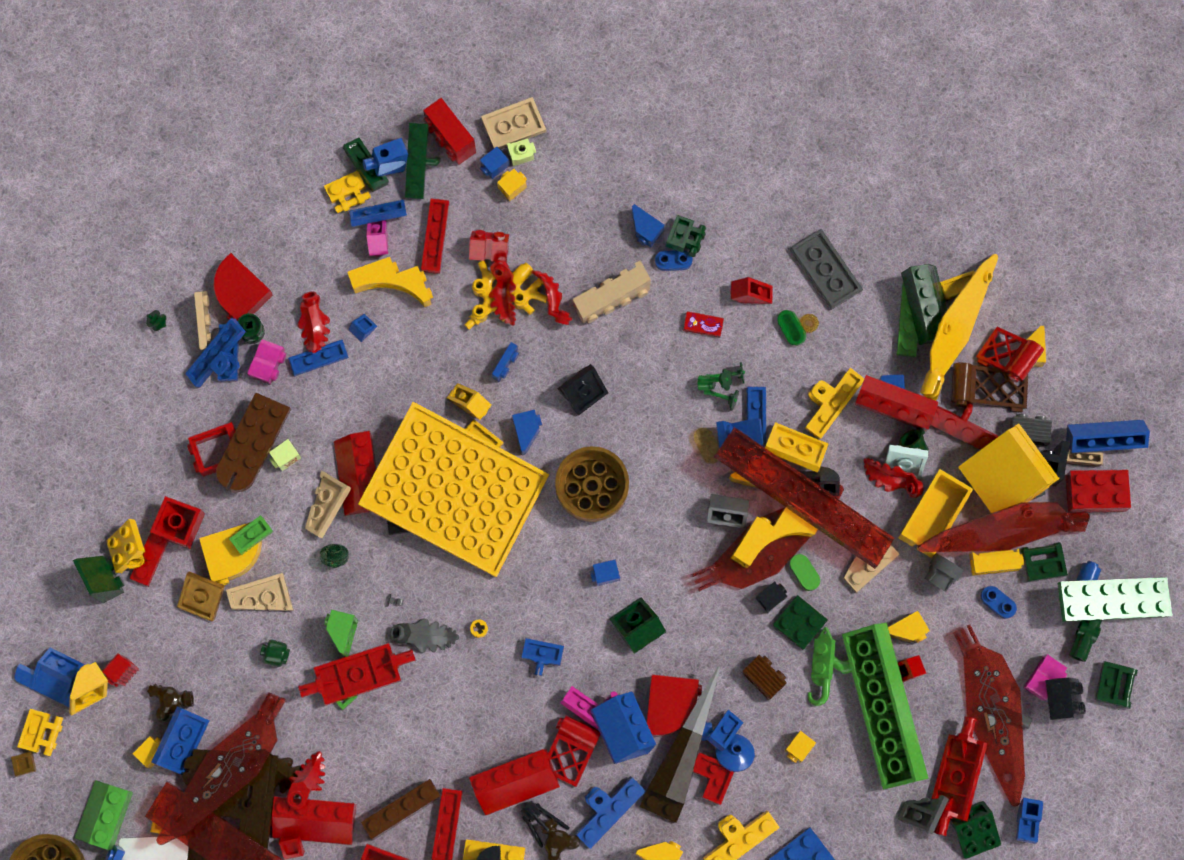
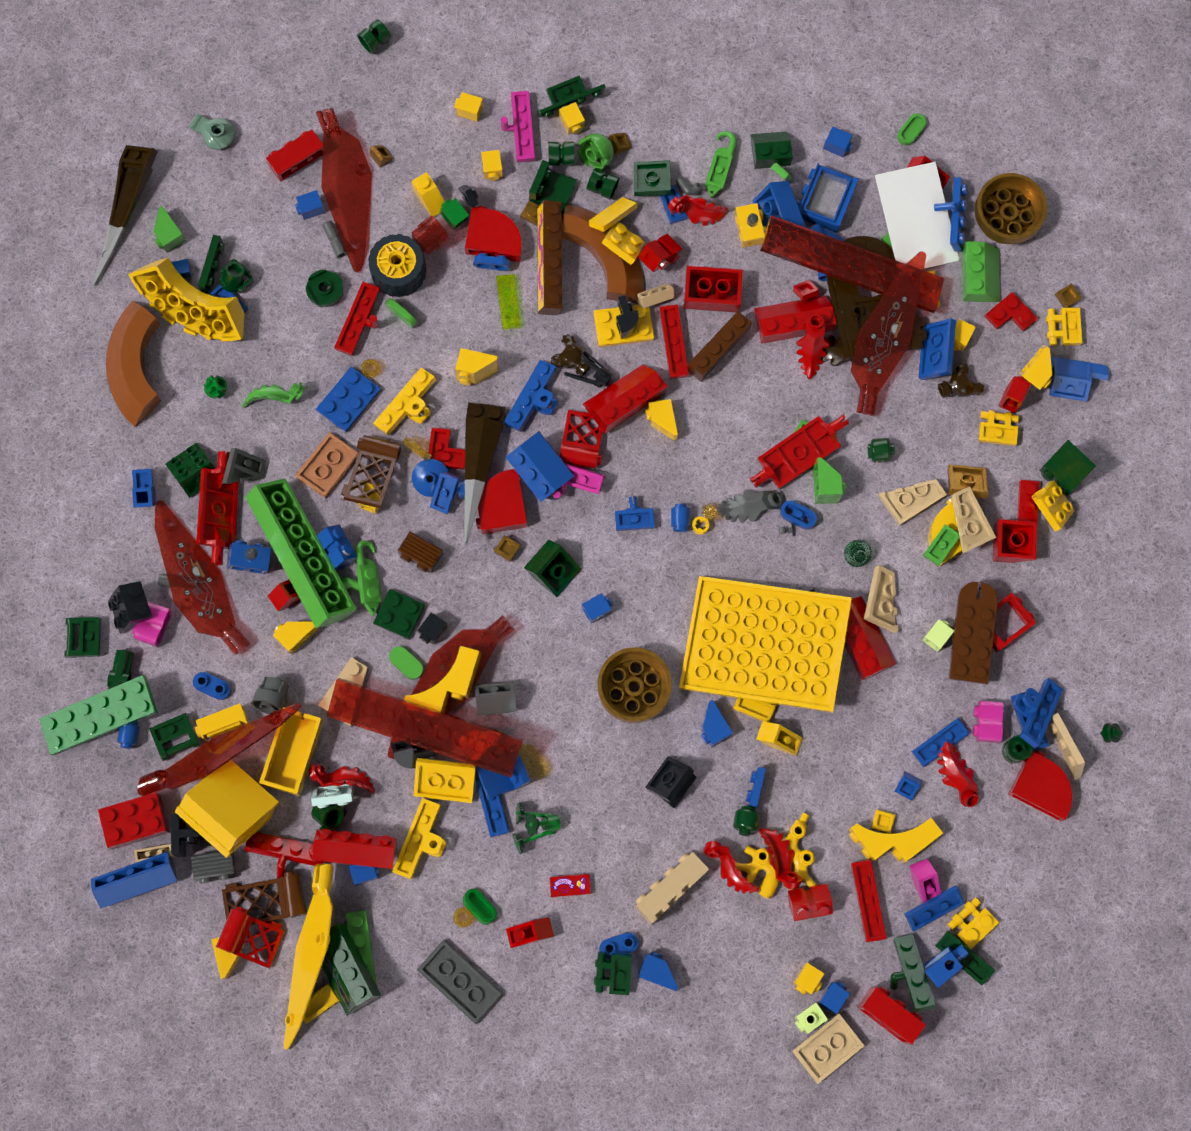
camera: 160 degrees right, 0 degrees up
(88, 769) = (1011, 308): none -> red plate
(150, 638) = (998, 433): none -> yellow plate
(214, 549) = (970, 520): none -> tan wing
(379, 611) = (799, 513): none -> blue plate
(397, 301) = (883, 821): none -> yellow tile
(465, 638) = (710, 512): none -> clear yellow plate
(483, 750) = (662, 417): none -> yellow slope
(496, 640) = (680, 518): none -> blue brick
(524, 335) = (746, 820): none -> dark green head
(677, 657) = (507, 548): none -> pearl gold plate
(742, 784) = (414, 447): none -> clear yellow tile
(783, 796) = (377, 450): none -> reddish brown piece
(836, 796) = (327, 465): none -> nougat tile
(845, 704) = (337, 546): none -> blue piece
(937, 717) = (248, 557): none -> blue piece

